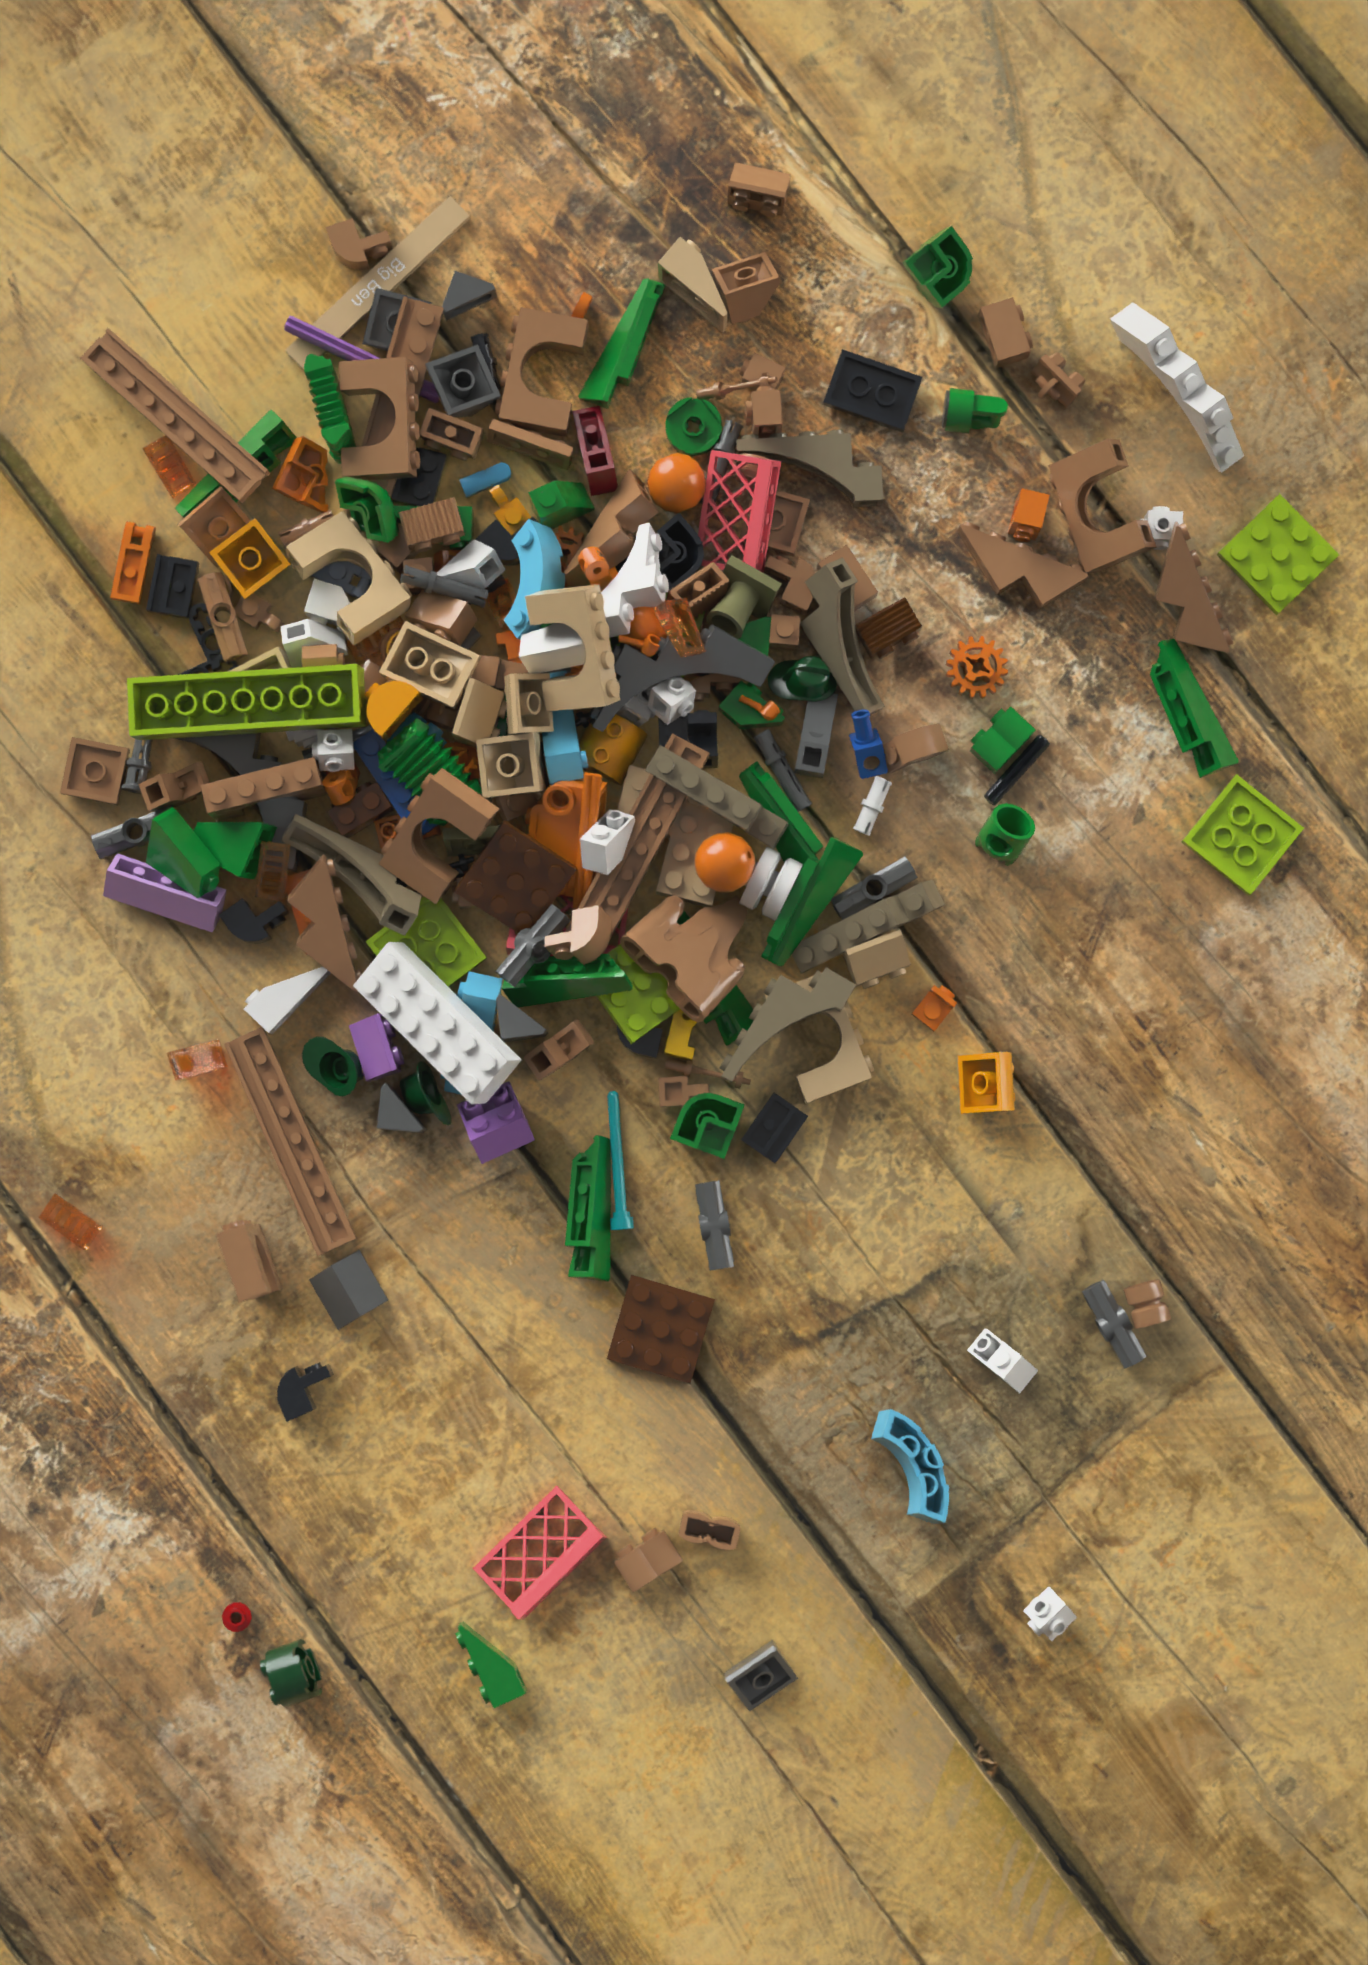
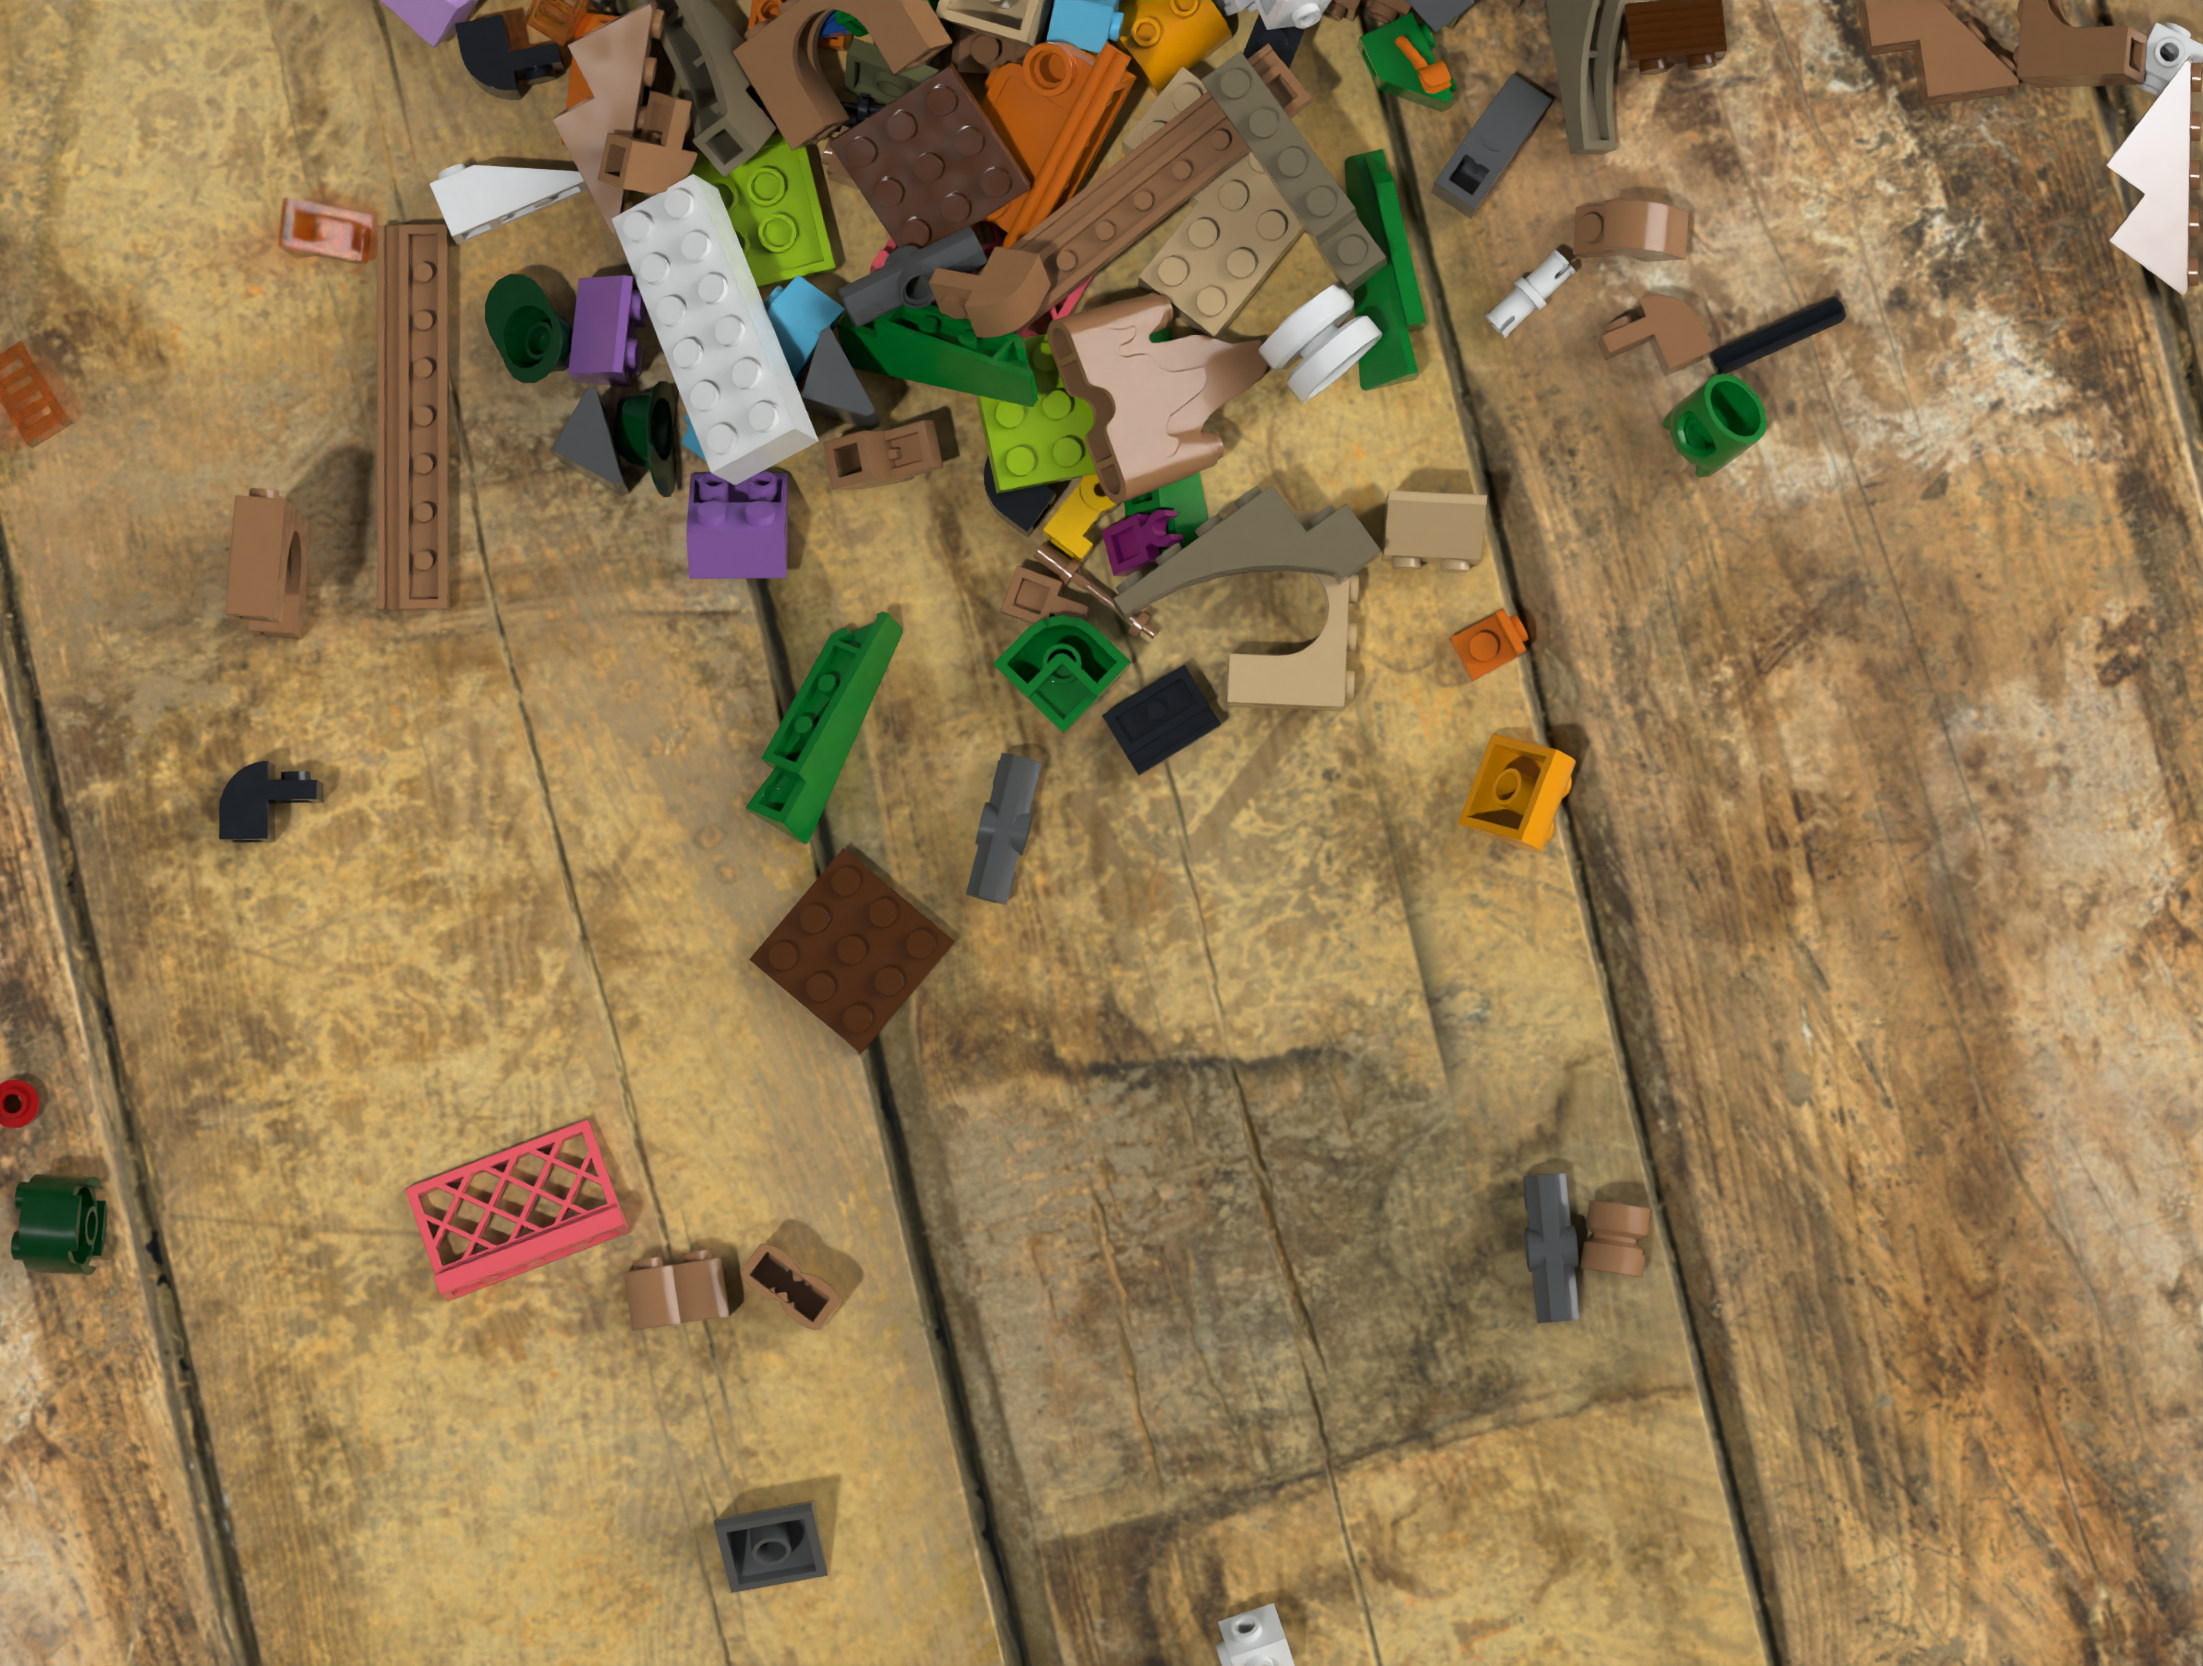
camera: 25 degrees right, 0 degrees up
(348, 1289) = (402, 682): dark grey slope -> none
(363, 940) = (655, 158): none -> medium nougat brick
(496, 1670) = (372, 1361): green slope -> none
(606, 841) = (1094, 165): white slope -> none
(621, 1217) = (866, 755): teal piece -> none
(703, 734) = (1318, 69): black brick -> none
(718, 1035) = (1136, 541): none -> magenta plate
(724, 862) = (1261, 275): orange piece -> none
(776, 760) = (1414, 171): dark grey pin -> none
(802, 679) = (1507, 54): dark green piece -> none
(809, 898) = (1368, 389): green wedge -> none
(867, 743) = (1562, 193): blue bracket -> none
(868, 924) = (1451, 466): dark tan arch -> none
(890, 880) = (1507, 417): dark grey piece -> none
(920, 1464) = (1158, 1327): medium azure brick -> none
(957, 791) = (1670, 328): none -> medium nougat brick
(967, 661) = (1796, 167): orange gear -> none
(1002, 739) = (1774, 278): green brick -> none
(1002, 1360) = (1355, 1228): white slope -> none
(1190, 711) = (2085, 362): green wedge -> none
(1242, 835) = (2082, 586): lime plate -> none

